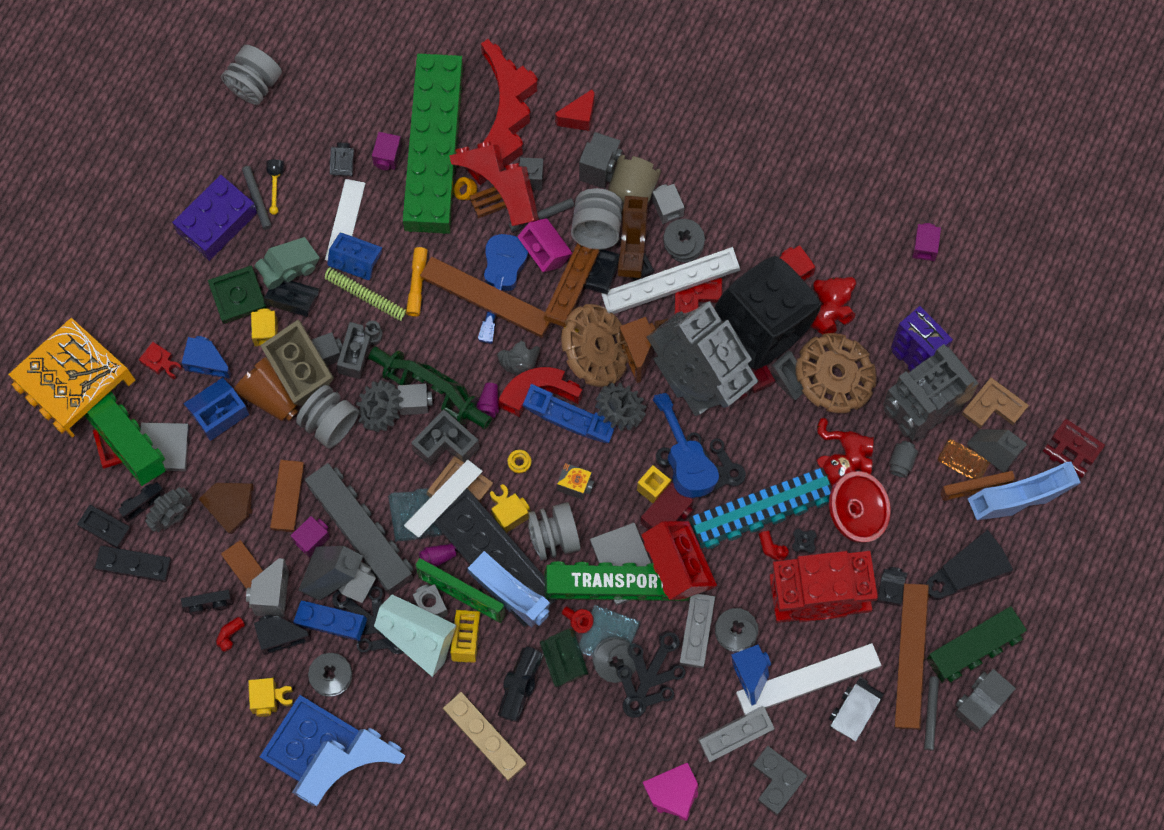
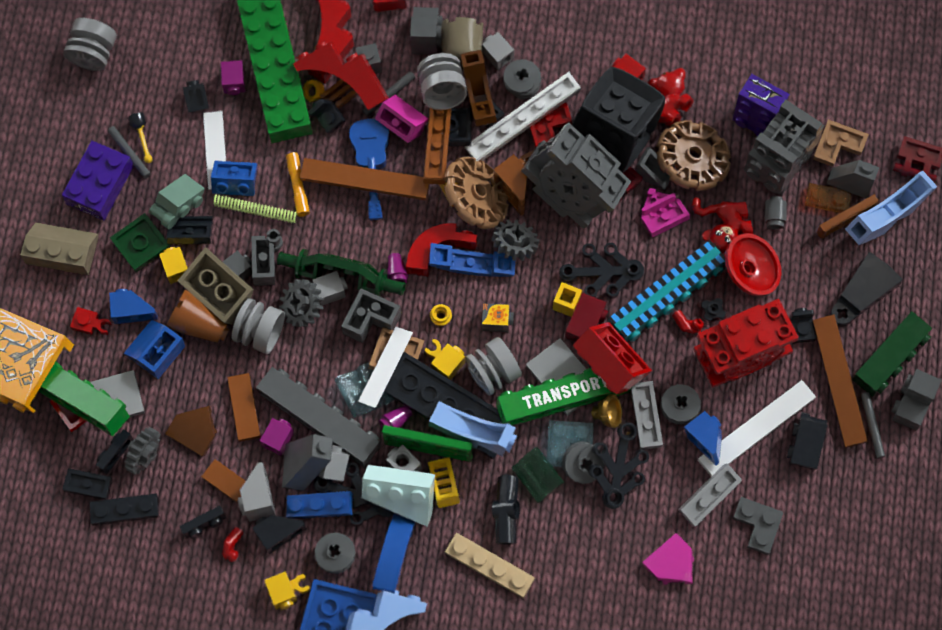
camera: 15 degrees left, 0 degrees up
(154, 276) = (59, 248): none -> dark tan slope
(387, 694) = (393, 553): none -> blue slope
(470, 218) = (327, 114): none -> black bracket
(519, 358) = (411, 225): dark grey hair -> none
(581, 619) = (542, 437): red plate -> none
(659, 614) = (608, 411): none -> pearl gold piece
(692, 471) = (597, 277): blue piece -> none
(784, 423) = (662, 212): none -> dark pink slope
(926, 242) = (734, 19): magenta brick -> none

